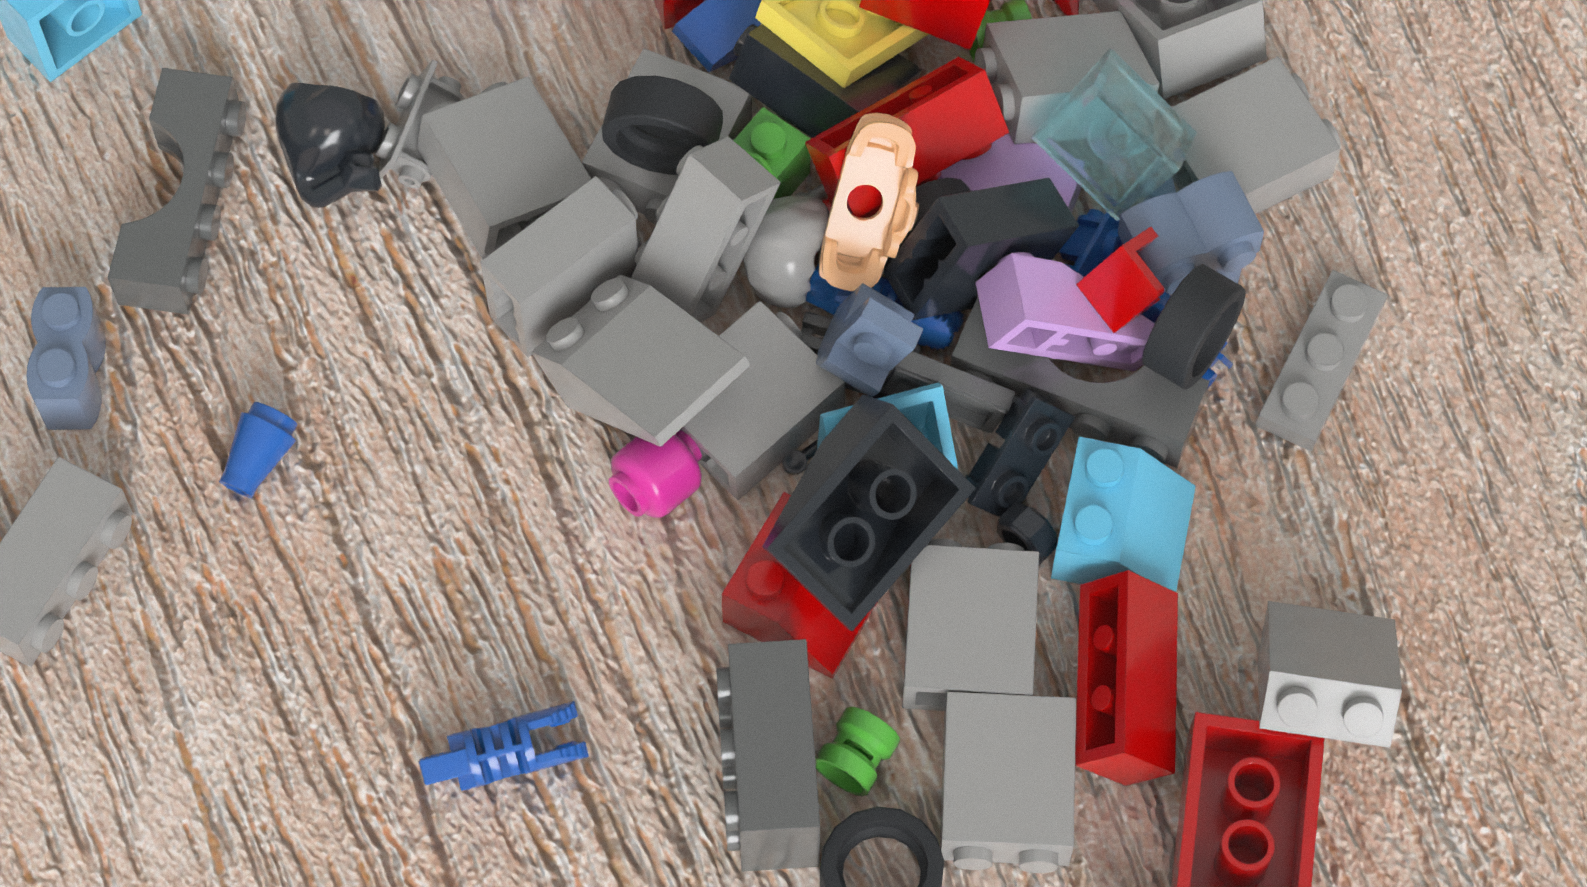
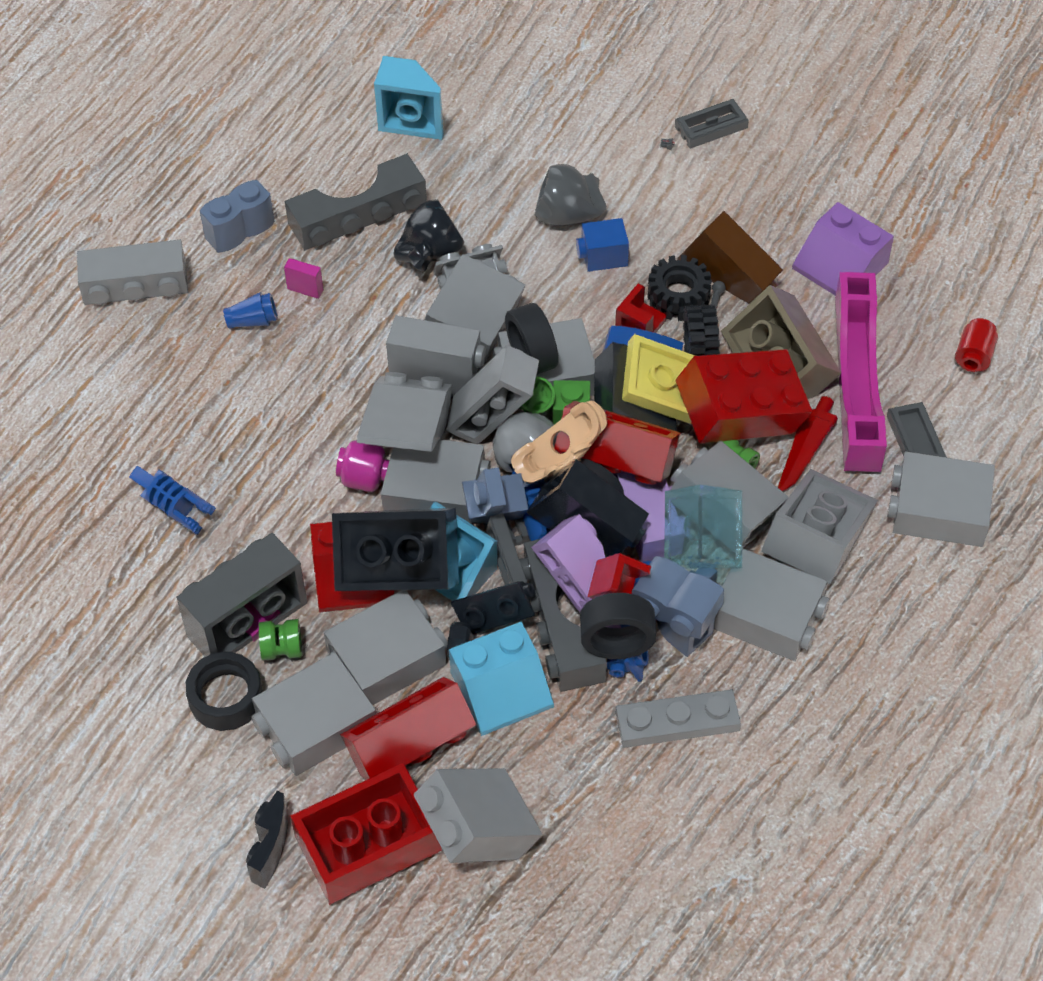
camera: 55 degrees right, 10 degrees down
(257, 343) = (303, 278): none -> dark pink tile

